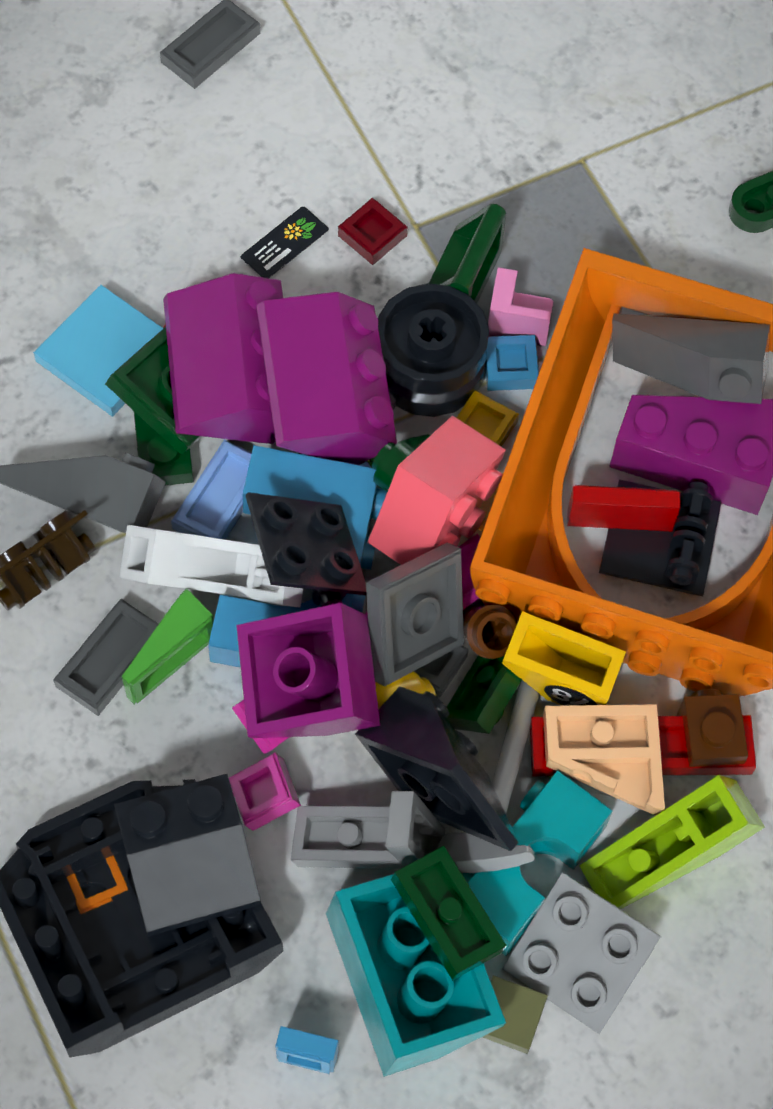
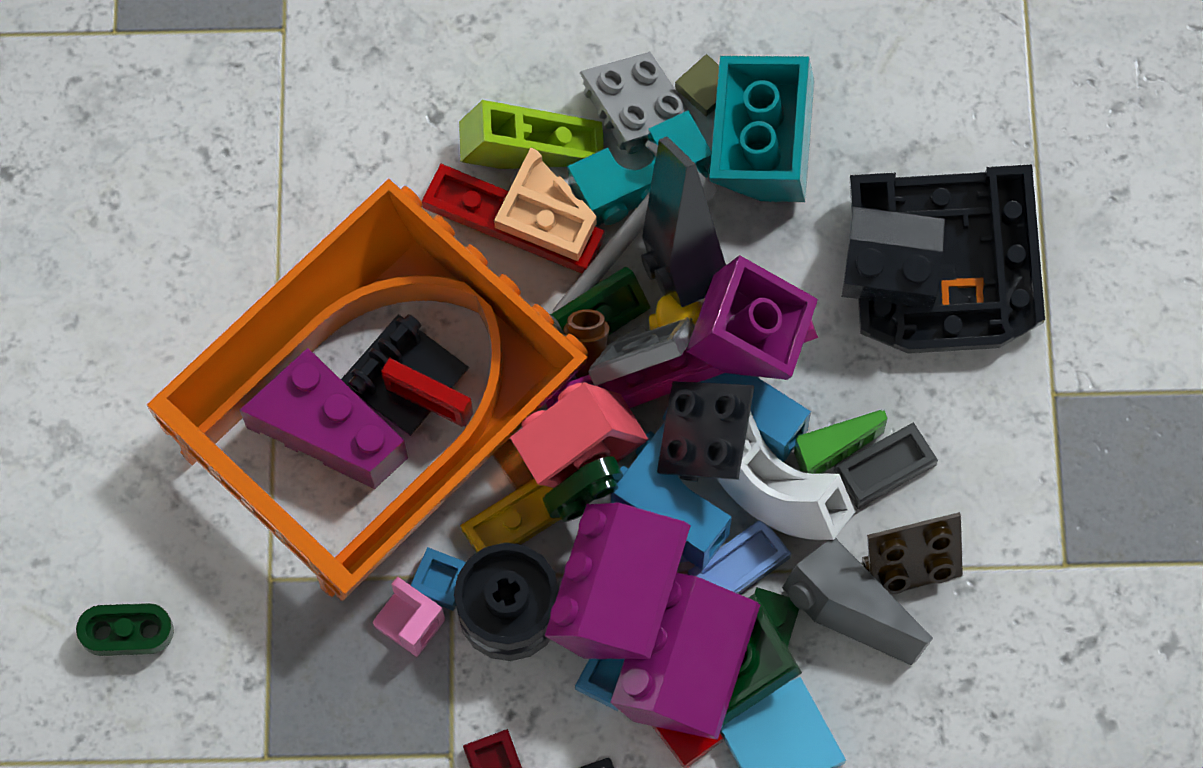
camera: 150 degrees left, 5 degrees up
(264, 791) = (826, 293): dark pink tile -> none
(306, 1050) = (860, 113): dark azure tile -> none
(366, 834) = (757, 230): light grey bracket -> none
(448, 912) = (728, 128): dark green plate -> none
(472, 252) = (437, 673): dark green tile -> none
(562, 662) = (544, 280): yellow slope -> none
(696, 355) = (293, 469): dark grey slope -> none
(713, 728) = (458, 198): reddish brown bracket -> none

